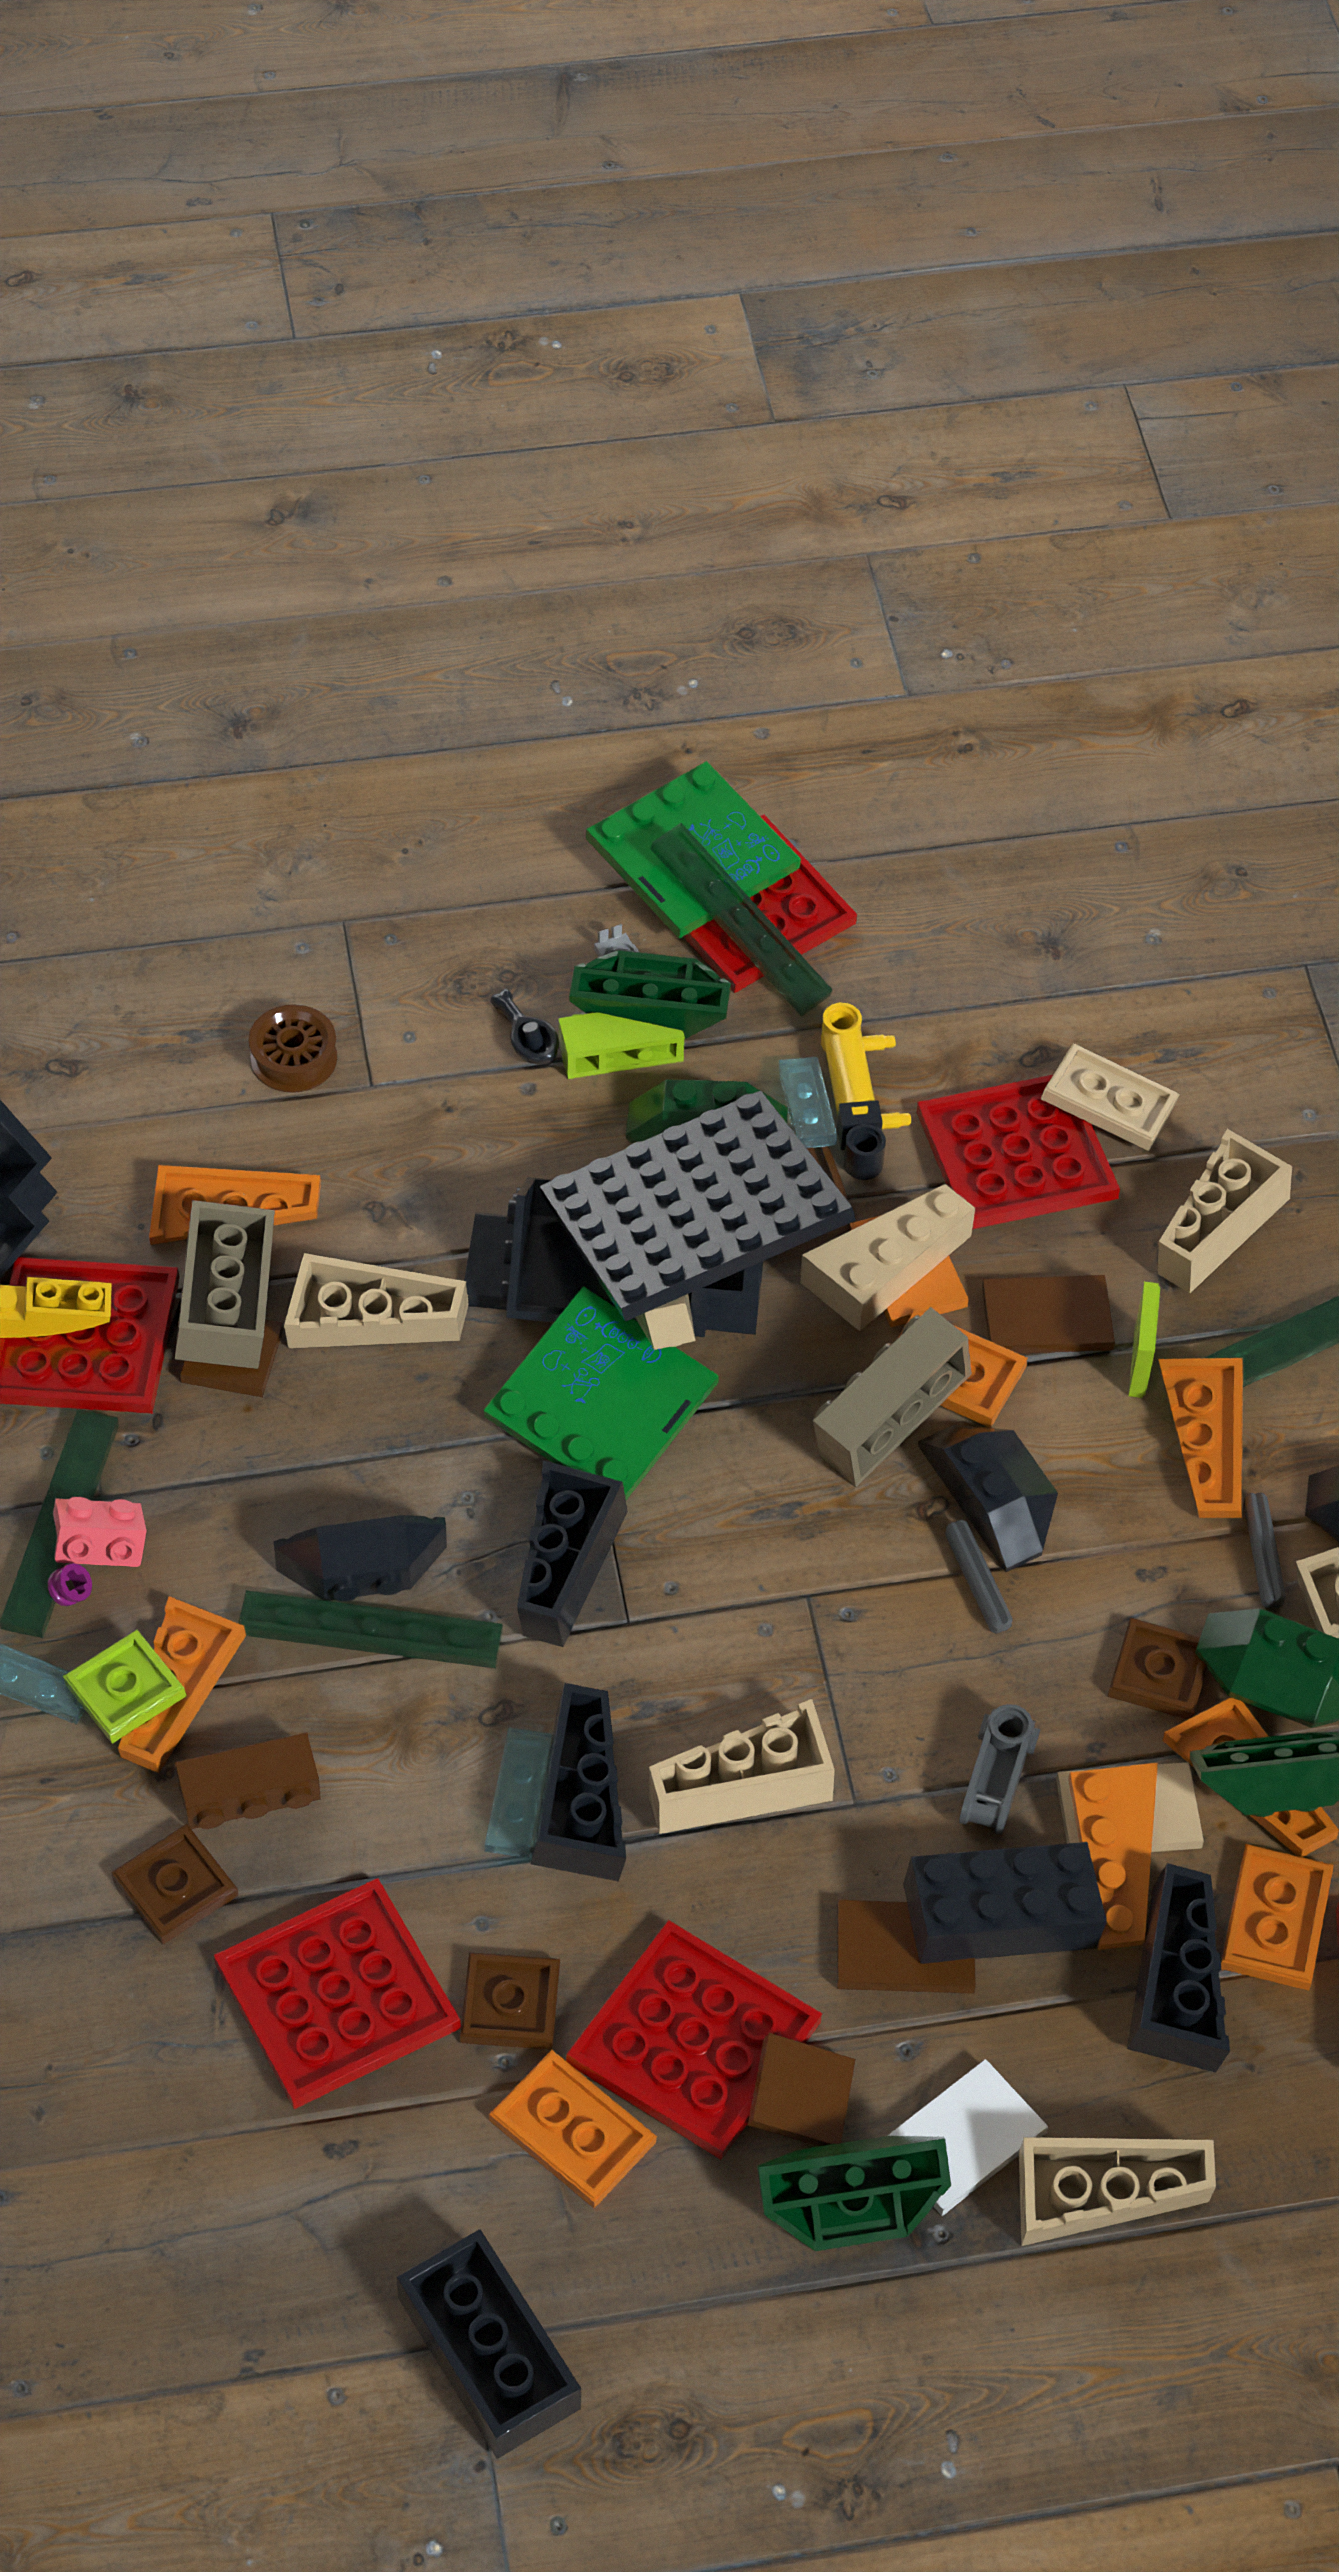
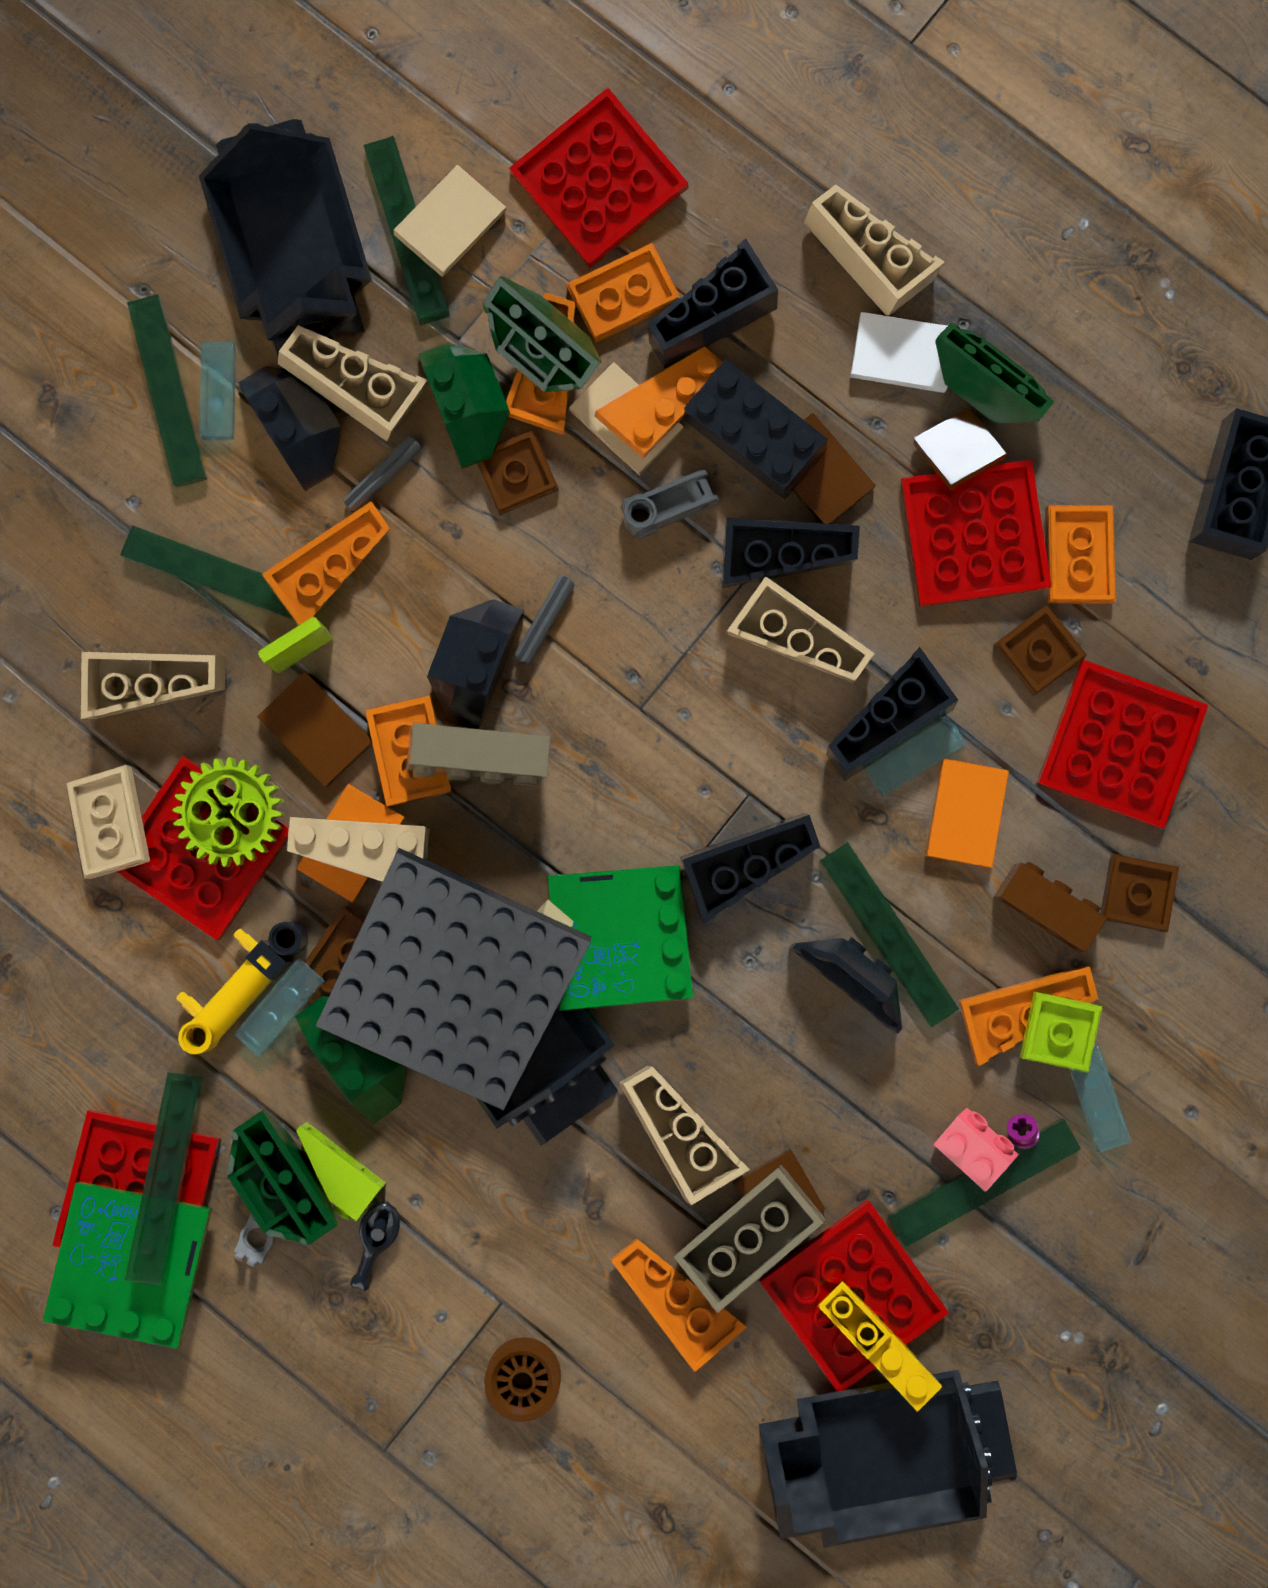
camera: 130 degrees left, 30 degrees up
(415, 1792) = (967, 813): none -> orange tile
(851, 1829) = (784, 548): none -> black wedge
(1028, 1178) = (208, 833): none -> lime gear

